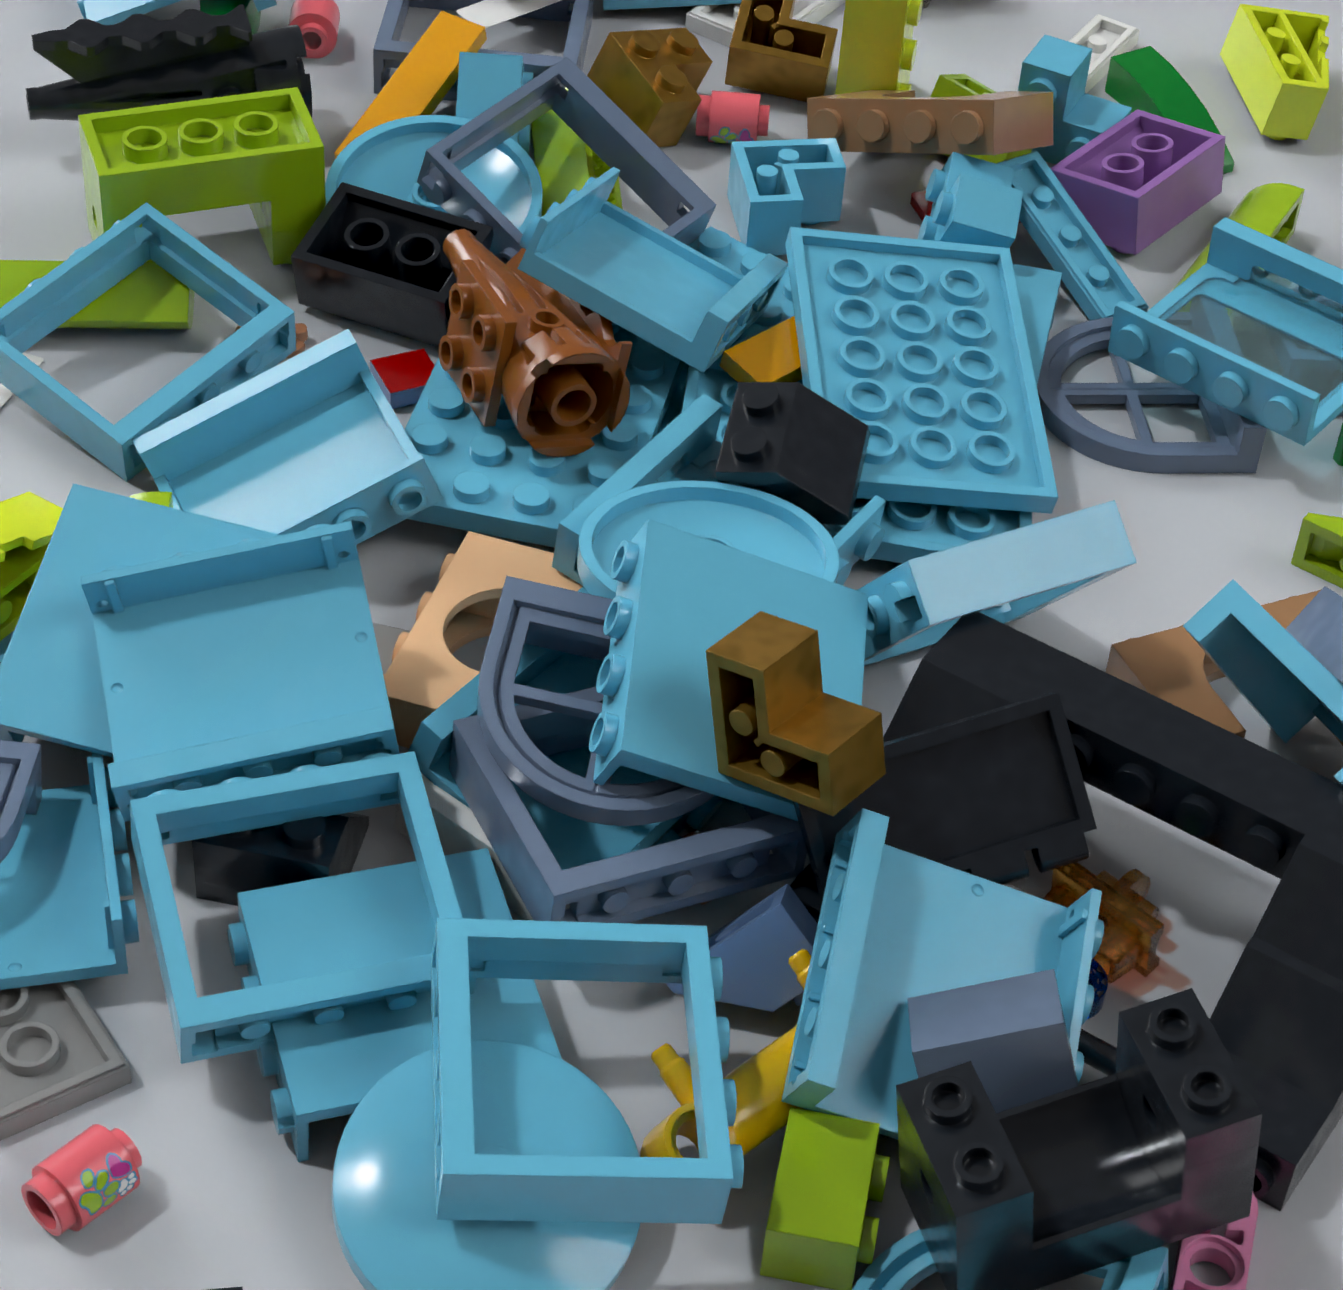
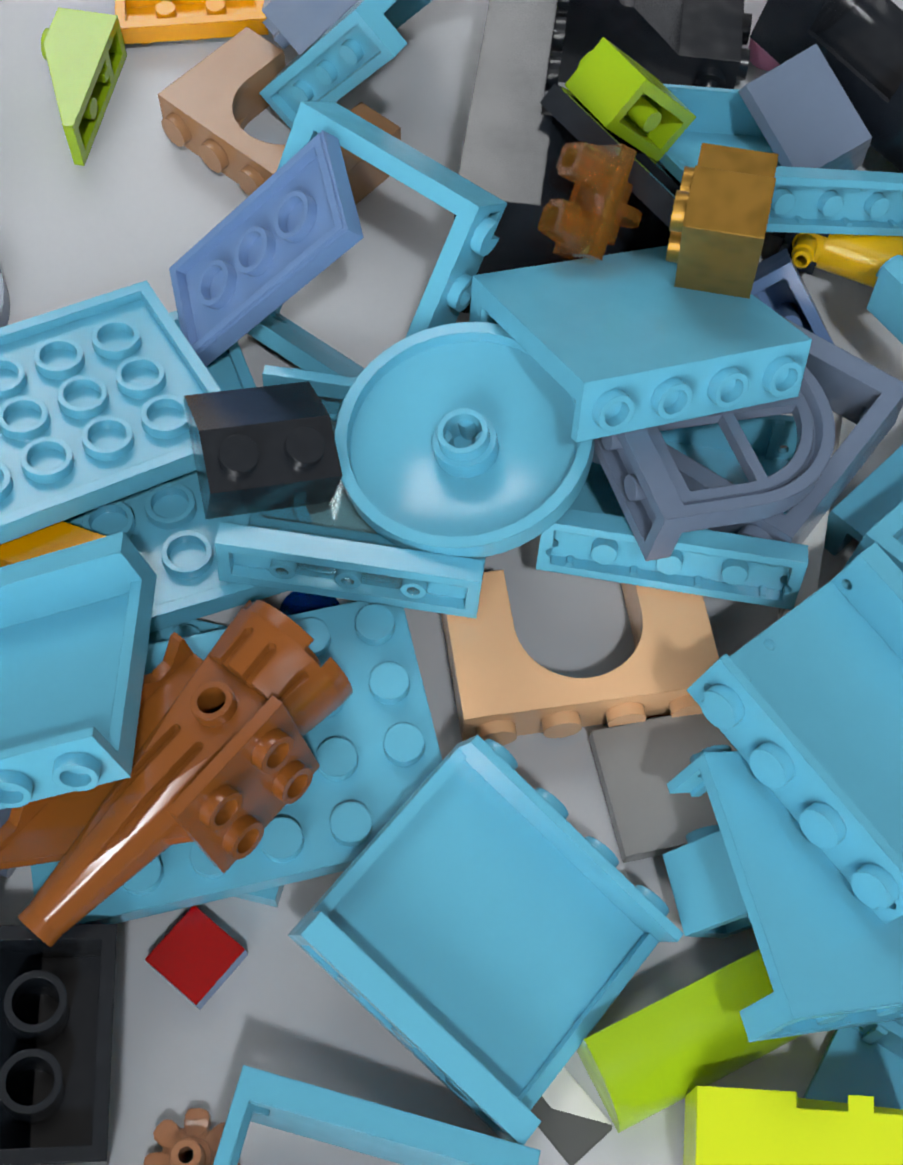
camera: 115 degrees left, 20 degrees up
(903, 682) = (596, 202): none -> clear orange hips
(992, 502) = (266, 249): none -> medium blue tile
(1052, 814) = (629, 100): none -> lime brick

